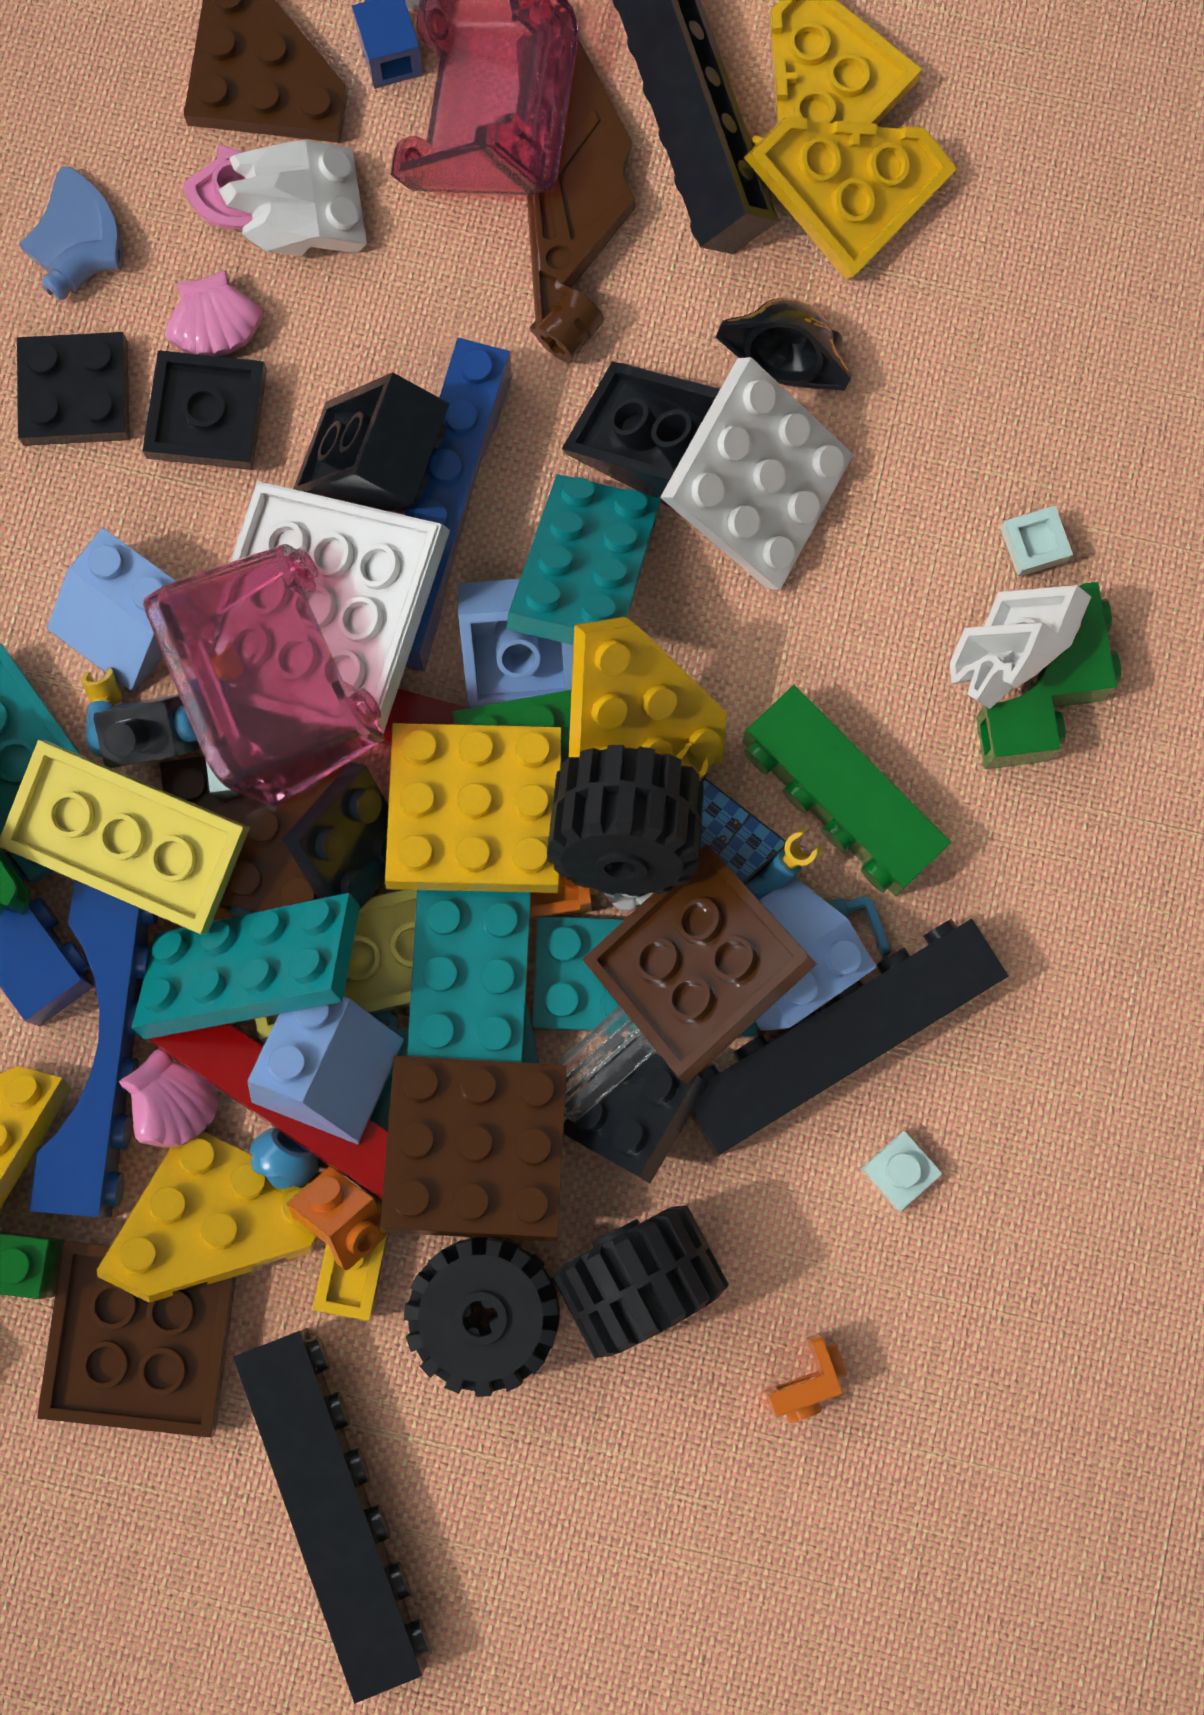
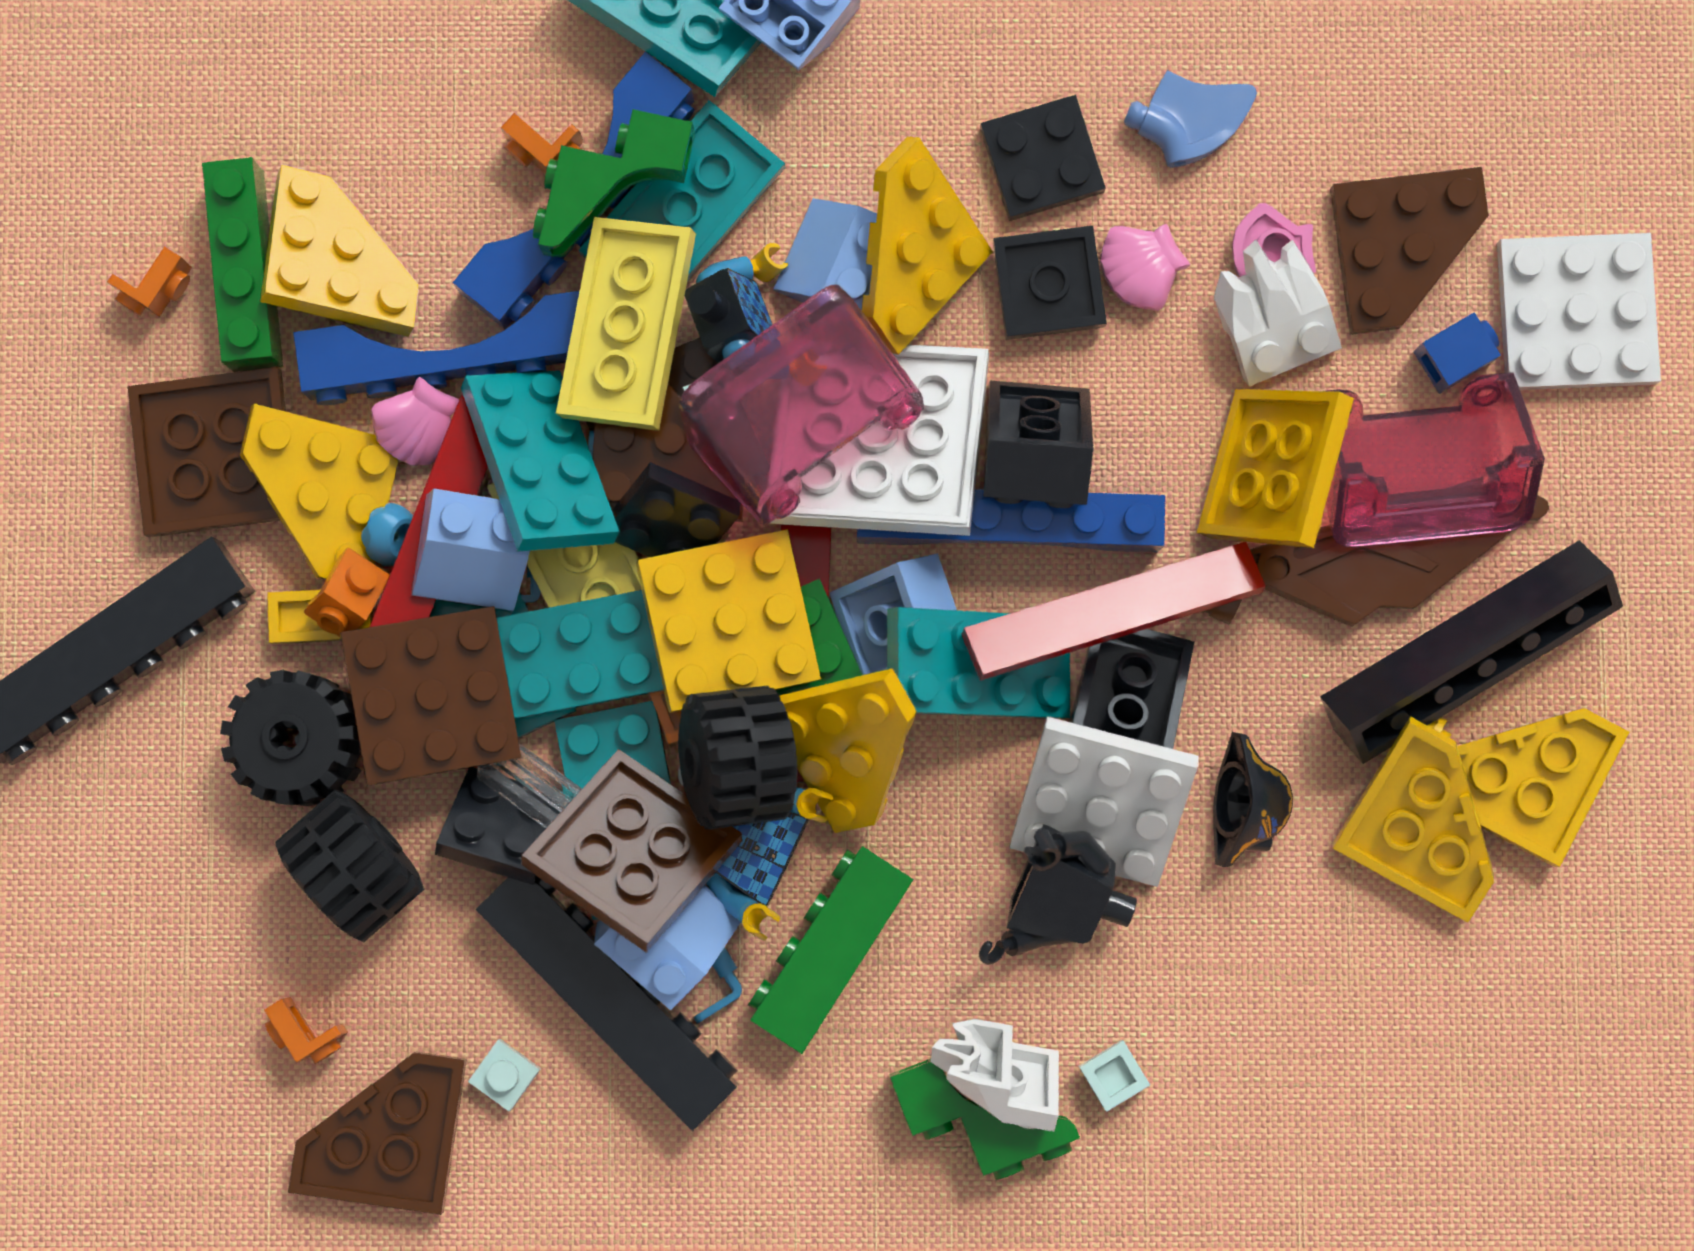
camera: 80 degrees right, 5 degrees up
(124, 514) = (918, 246): none -> yellow plate
(457, 221) = (1275, 466): none -> yellow plate
(565, 414) = (1112, 610): none -> tile
(842, 542) = (1061, 895): none -> black torso
(946, 1315) = (388, 1141): none -> reddish brown plate

